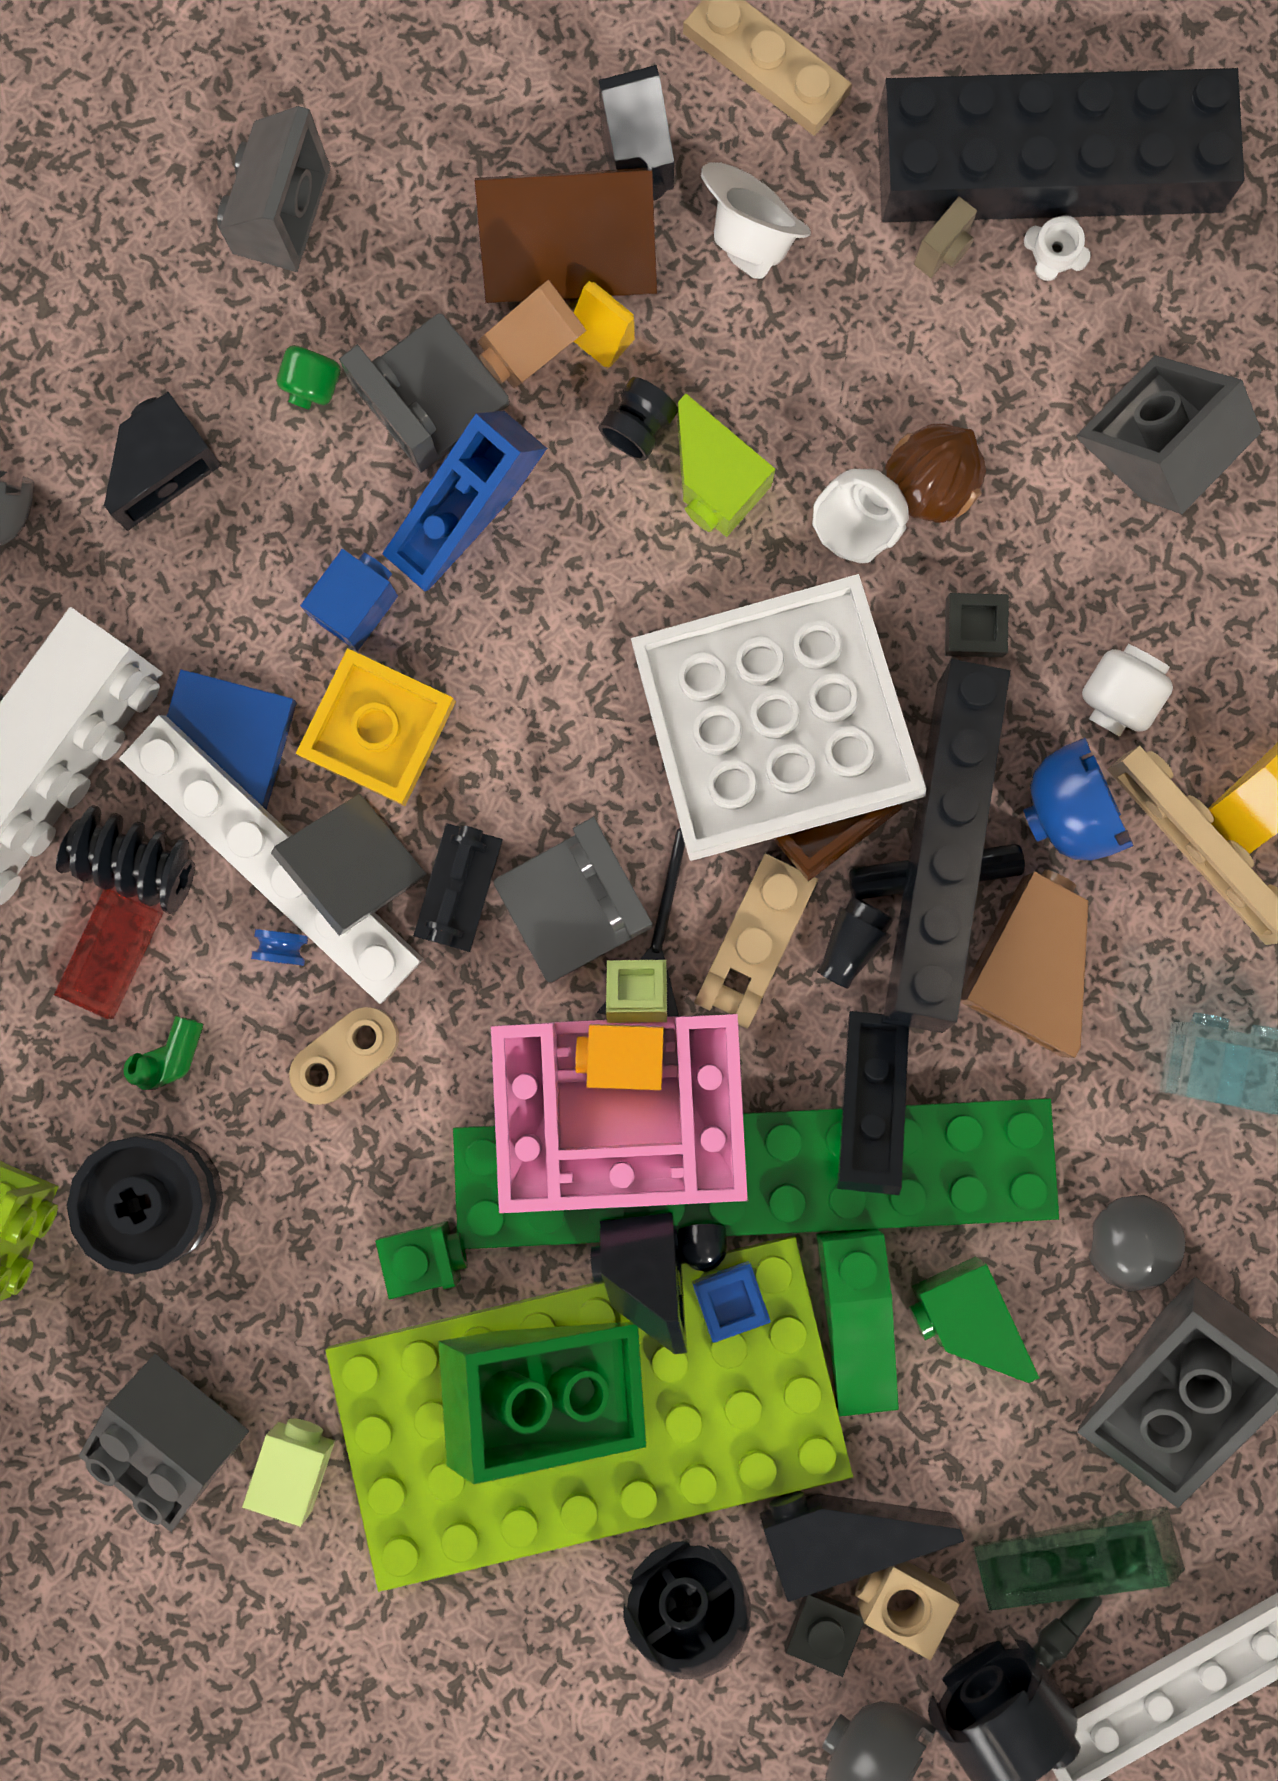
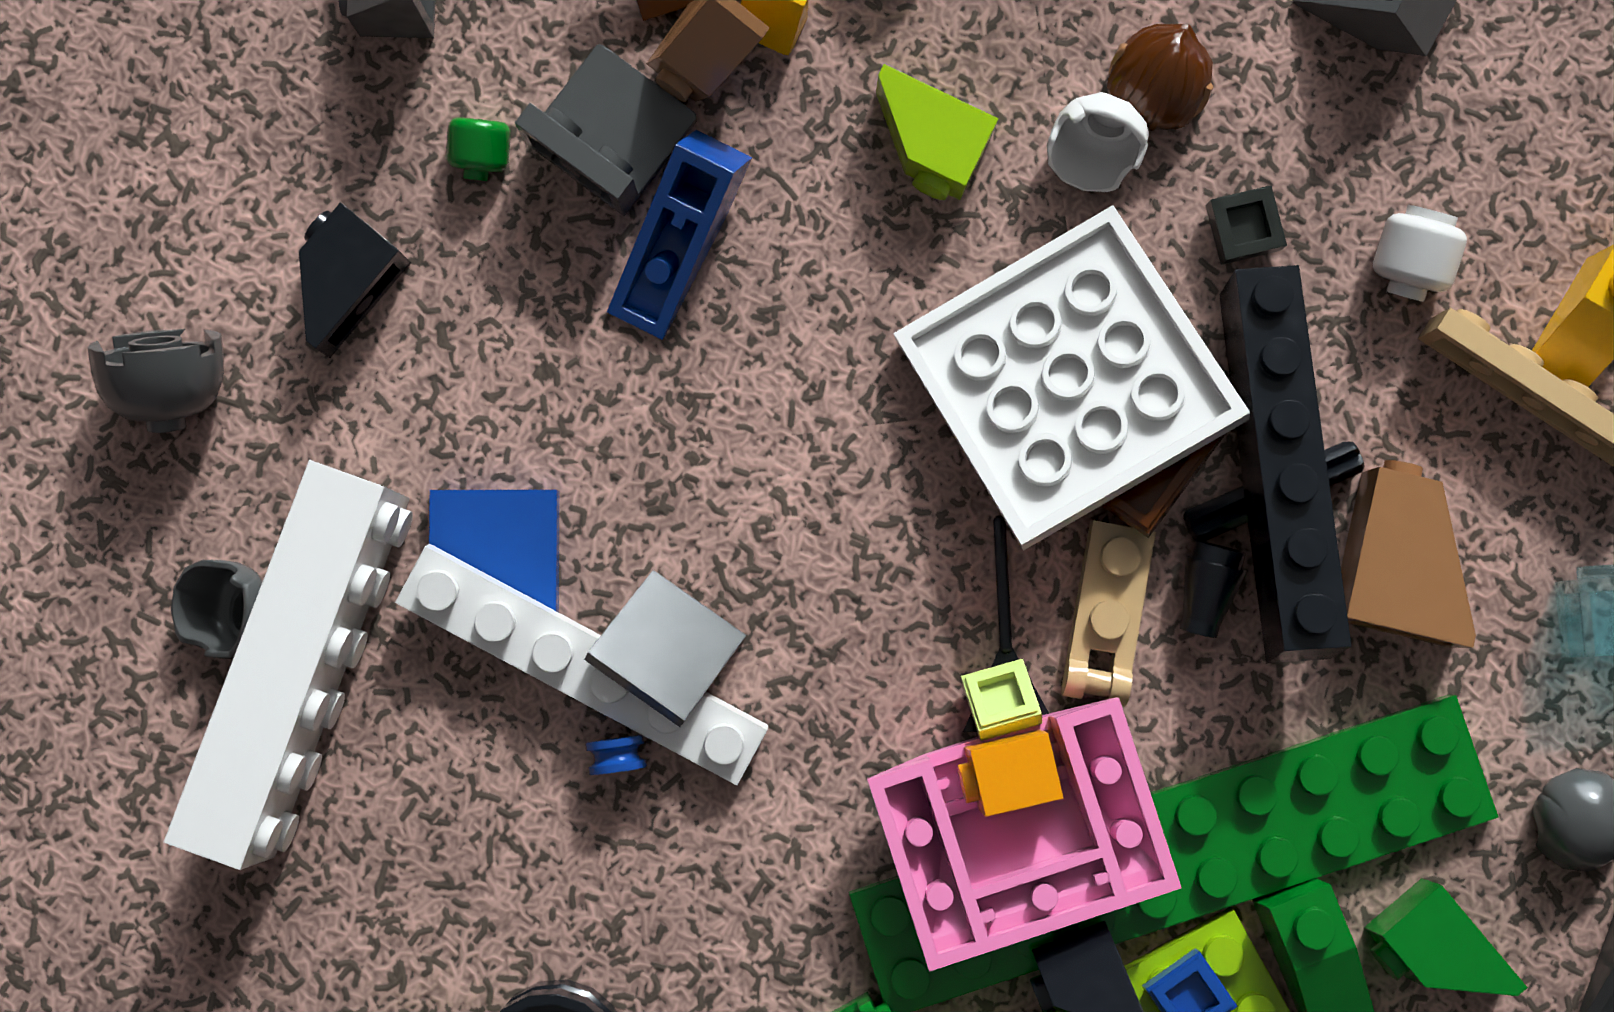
camera: 25 degrees left, 0 degrees up
(108, 954) = (435, 809): clear red tile -> none
(127, 860) = (431, 706): black piece -> none
(167, 1062) = (530, 906): green arm -> none
(343, 1055) = (713, 849): tan plate -> none
(351, 598) = (590, 367): blue brick -> none
(376, 727) = (652, 496): yellow plate -> none
(458, 887) = (783, 641): black hinge -> none
(573, 902) = (910, 624): dark grey bracket -> none
(638, 418) = (838, 101): black wheel -> none
(703, 1245) = (1143, 946): black hinge -> none
(873, 1105) = (1280, 752): black plate -> none
(1075, 806) = (1402, 387): blue cylinder -> none

